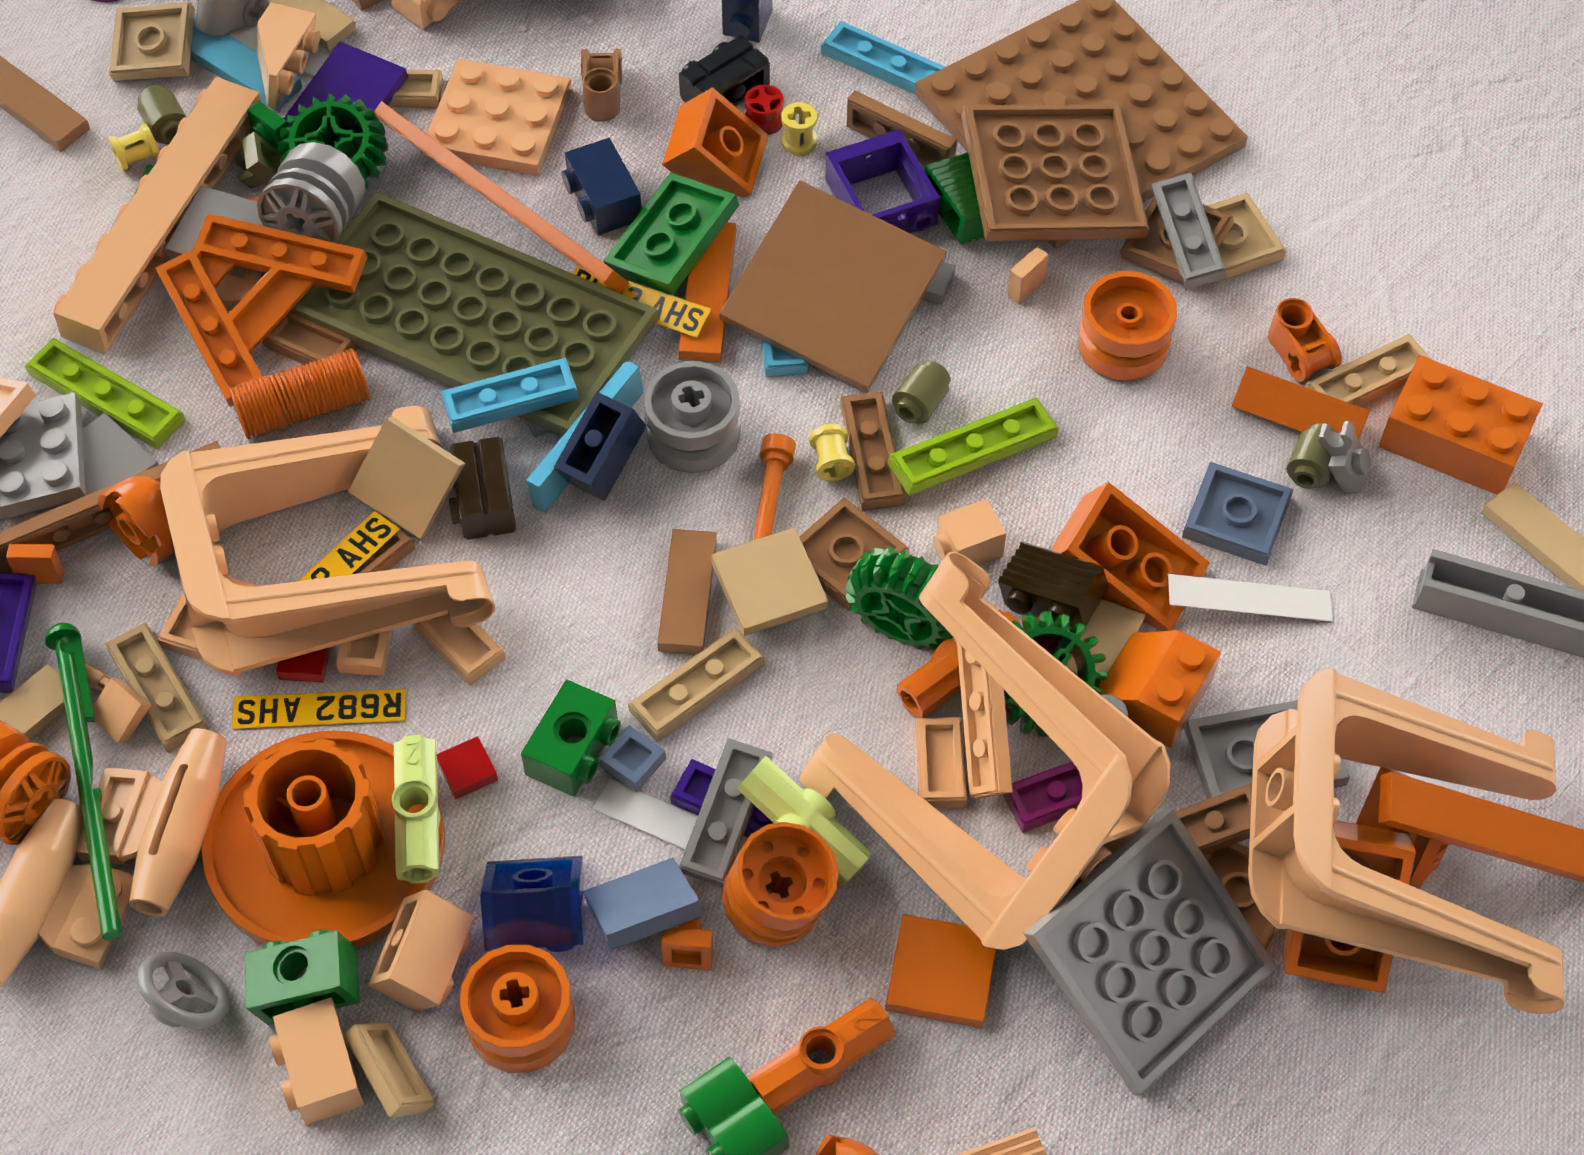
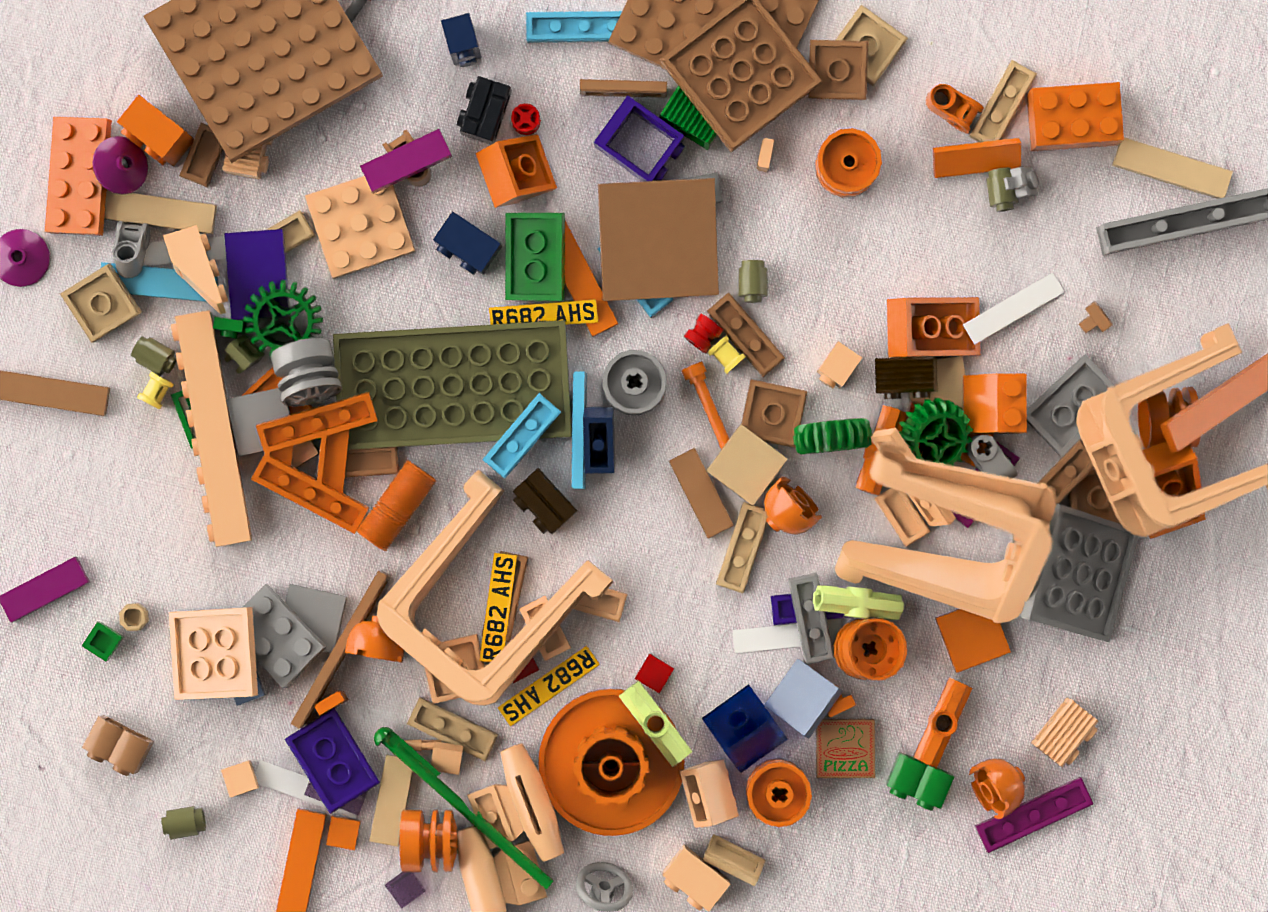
camera: 30 degrees left, 30 degrees up
(106, 392) = (275, 568): lime tile -> none
(274, 970) = (646, 855): brick -> none
(406, 477) = (504, 528): tan tile -> none
(501, 198) = (414, 296): orange tile -> none
(571, 713) = (691, 610): green brick -> none
(594, 64) = (406, 161): none -> magenta tile
(632, 758) = (740, 616): sand blue plate -> none
(657, 1017) = (845, 748): none -> medium nougat tile
(789, 659) = (790, 508): none -> orange cylinder
(807, 122) = (558, 114): light yellow bush -> none
(819, 411) = (703, 333): none -> red wheel
(972, 446) = (803, 299): lime tile -> none
(1188, 231) = (847, 68): light grey tile -> none
(1237, 513) = (976, 251): sand blue tile -> none
(1359, 660) = (1096, 318): none -> medium nougat tile

